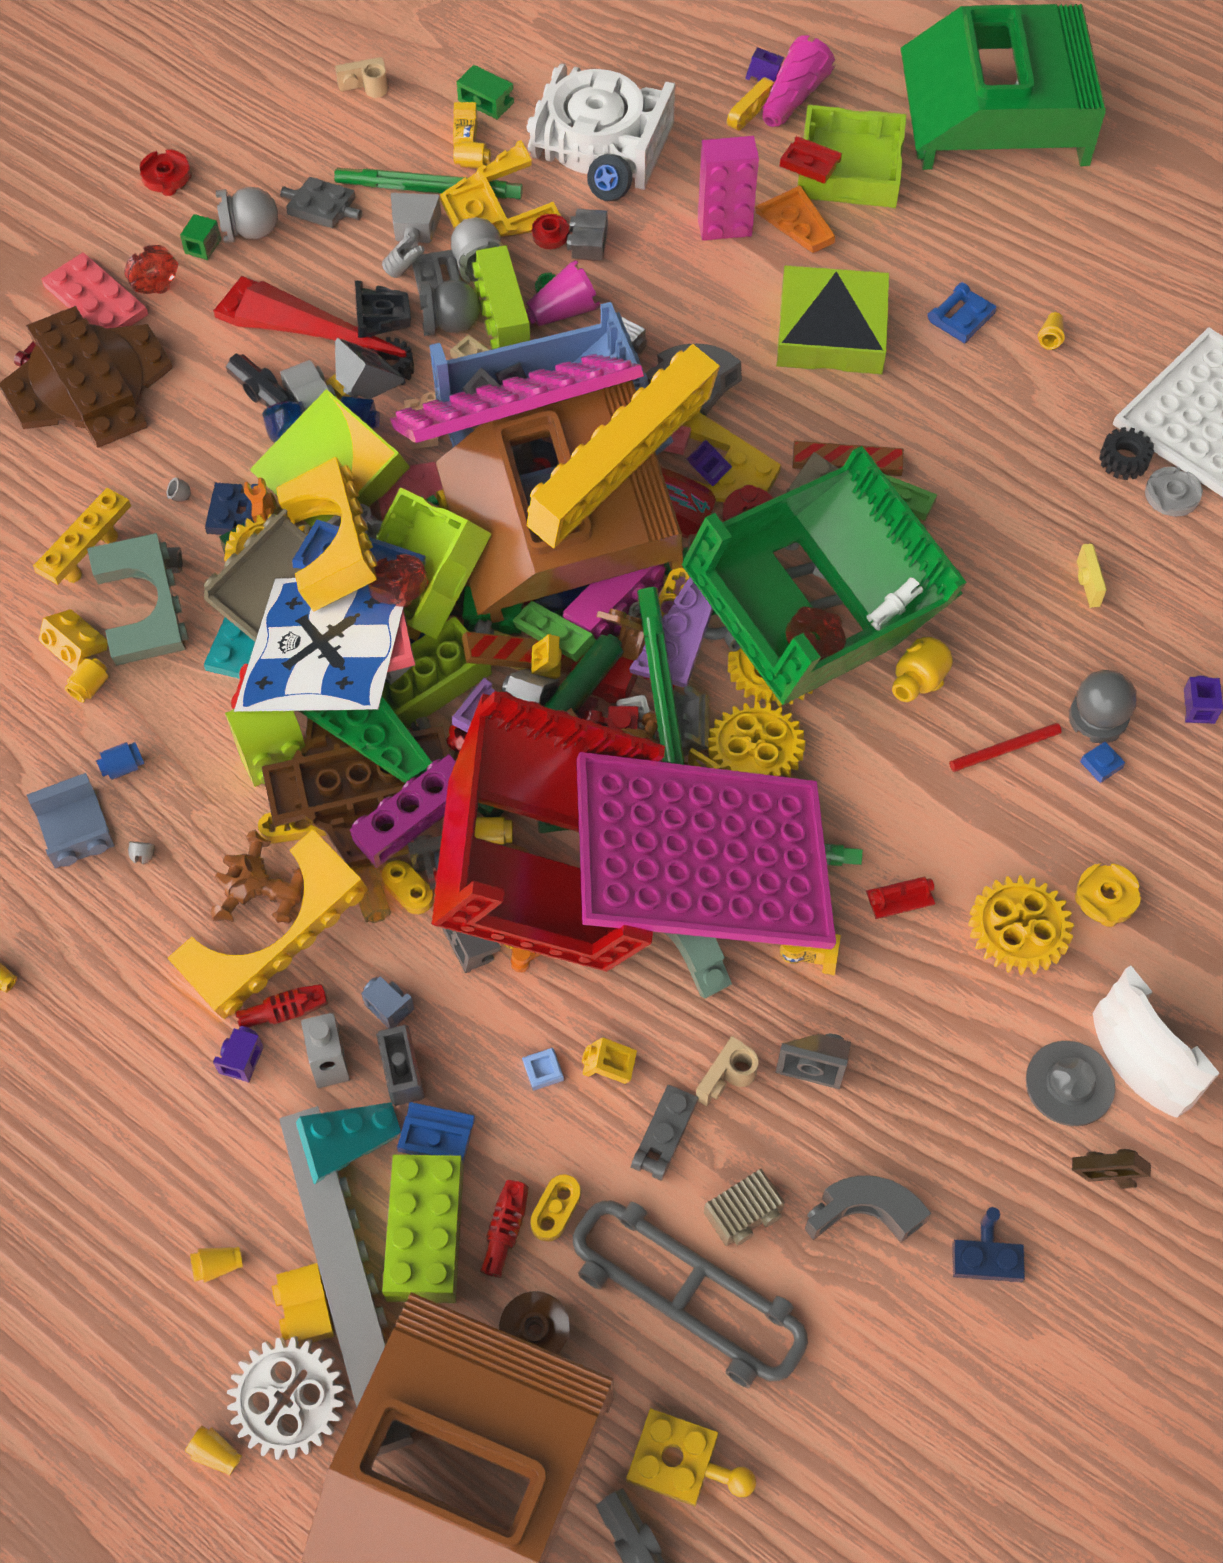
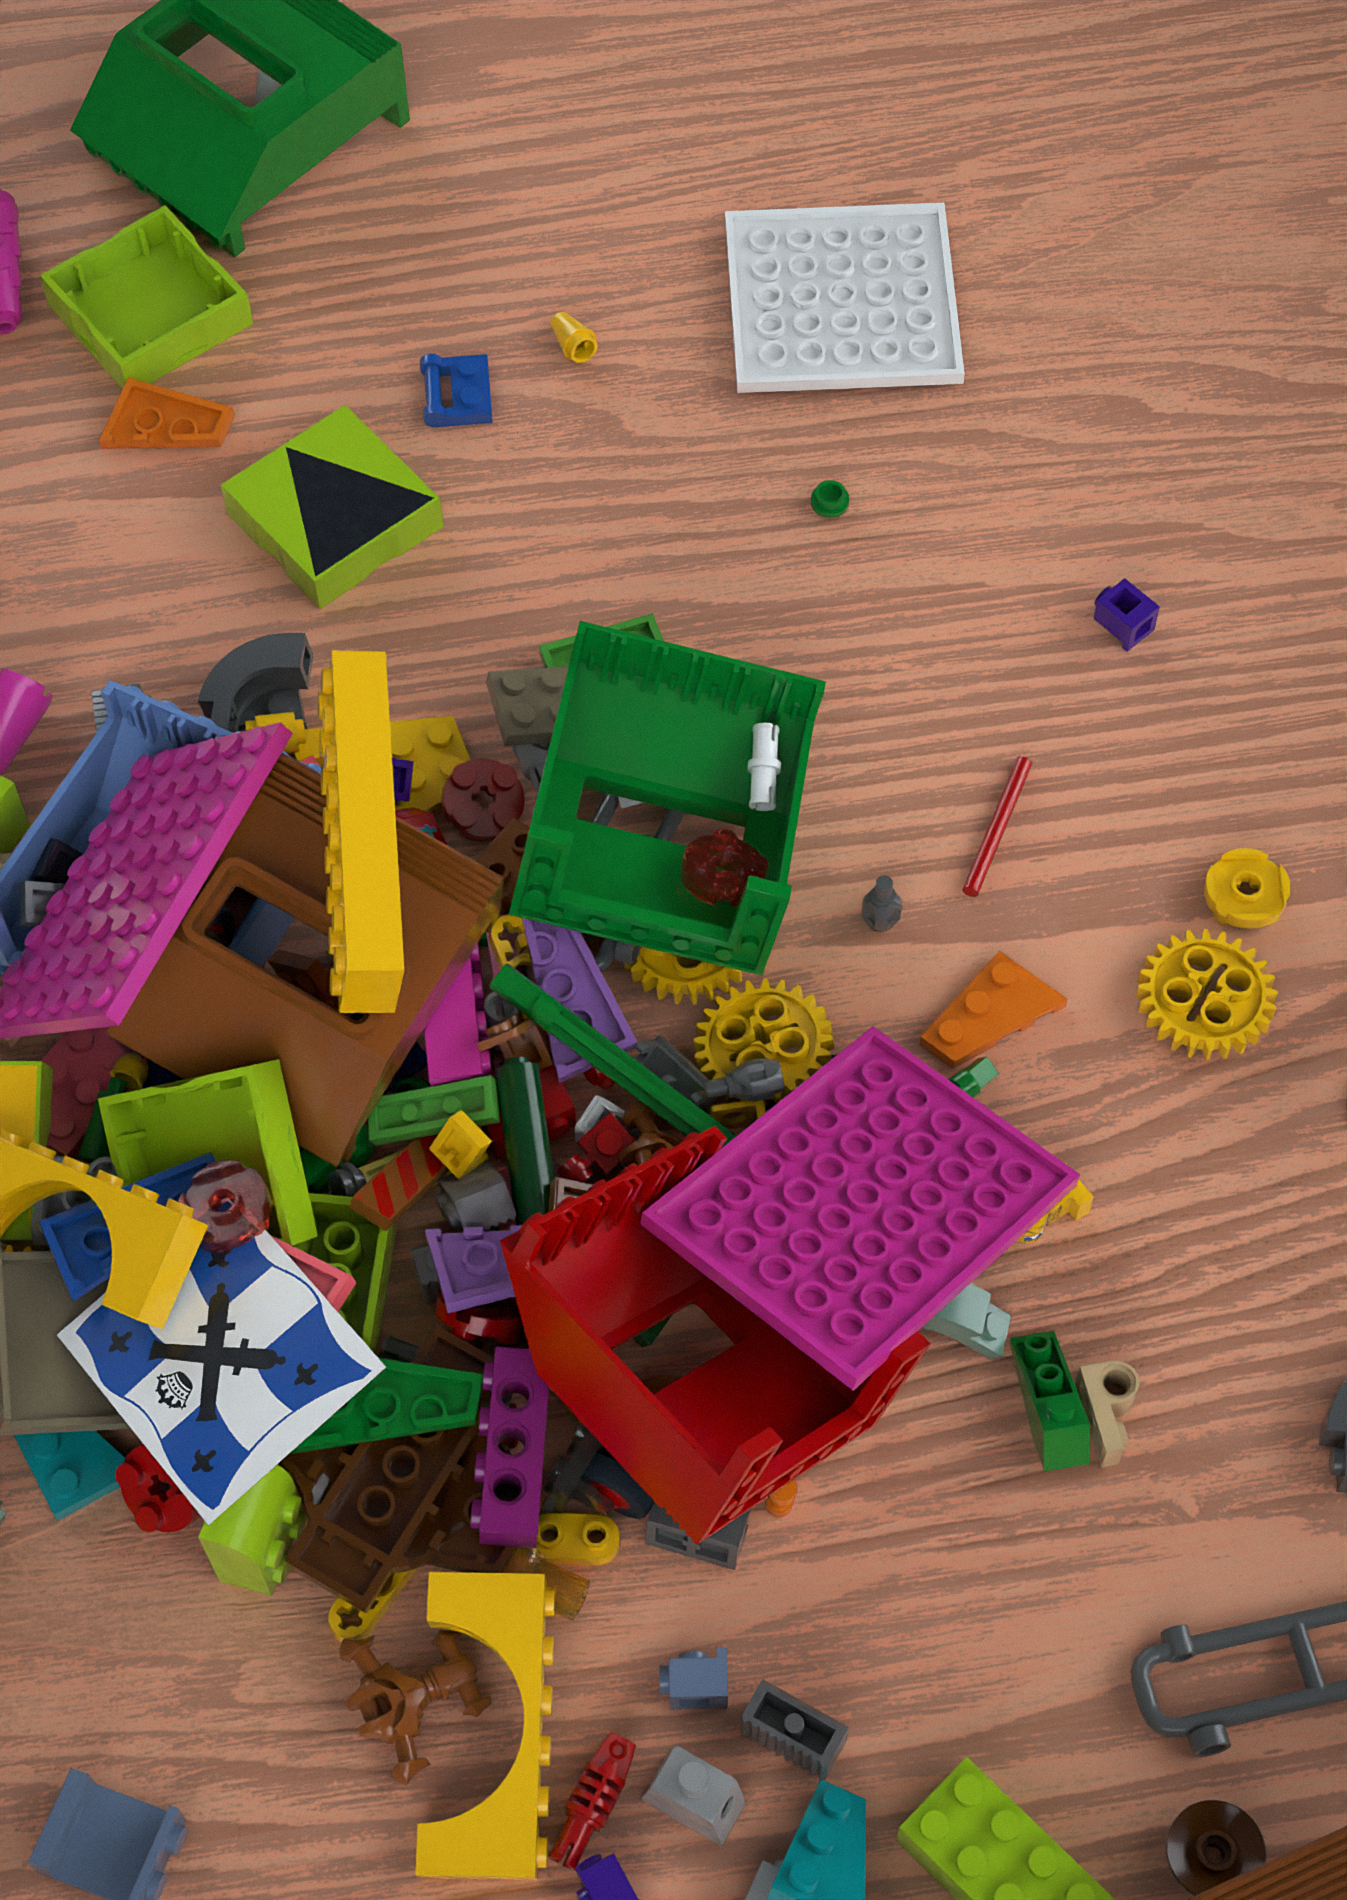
camera: 45 degrees left, 0 degrees up
(120, 760) = (85, 1716): blue brick -> none
(142, 849) = (230, 1791): light grey hinge -> none
(435, 1131) = (901, 1763): blue plate -> none
(504, 1226) = (1074, 1783): red hinge -> none
(543, 1069) = (927, 1588): light blue tile -> none
(555, 1209) = (1101, 1714): yellow plate -> none
(609, 1060) = (983, 1513): yellow bracket -> none
(665, 1131) = (1113, 1529): dark grey plate -> none
(702, 1041) = (1051, 1401): none -> green slope
(721, 751) = (749, 1081): none -> dark grey piece
(727, 187) = (69, 442): dark pink brick -> none
(744, 1208) = (1271, 1527): dark tan brick -> none
(810, 159) = (121, 338): red plate -> none
(815, 1059) = (1181, 1307): dark grey slope -> none
(886, 458) = (511, 649): dark orange tile -> none
(892, 730) = (882, 905): none -> dark grey piece
(897, 830) = (989, 1008): none -> orange wing
(901, 897) = (1069, 1070): red hinge -> none
(922, 668) = (838, 815): yellow piece -> none
(1091, 575) = (891, 573): light yellow plate -> none
(1101, 514) = (830, 499): none -> green plate
(1102, 762) = (1100, 760): blue plate -> none
(1103, 706) = (1049, 701): dark grey tile -> none
(1126, 465) = (791, 397): black tyre -> none
(1173, 491) = (869, 418): light grey tile -> none

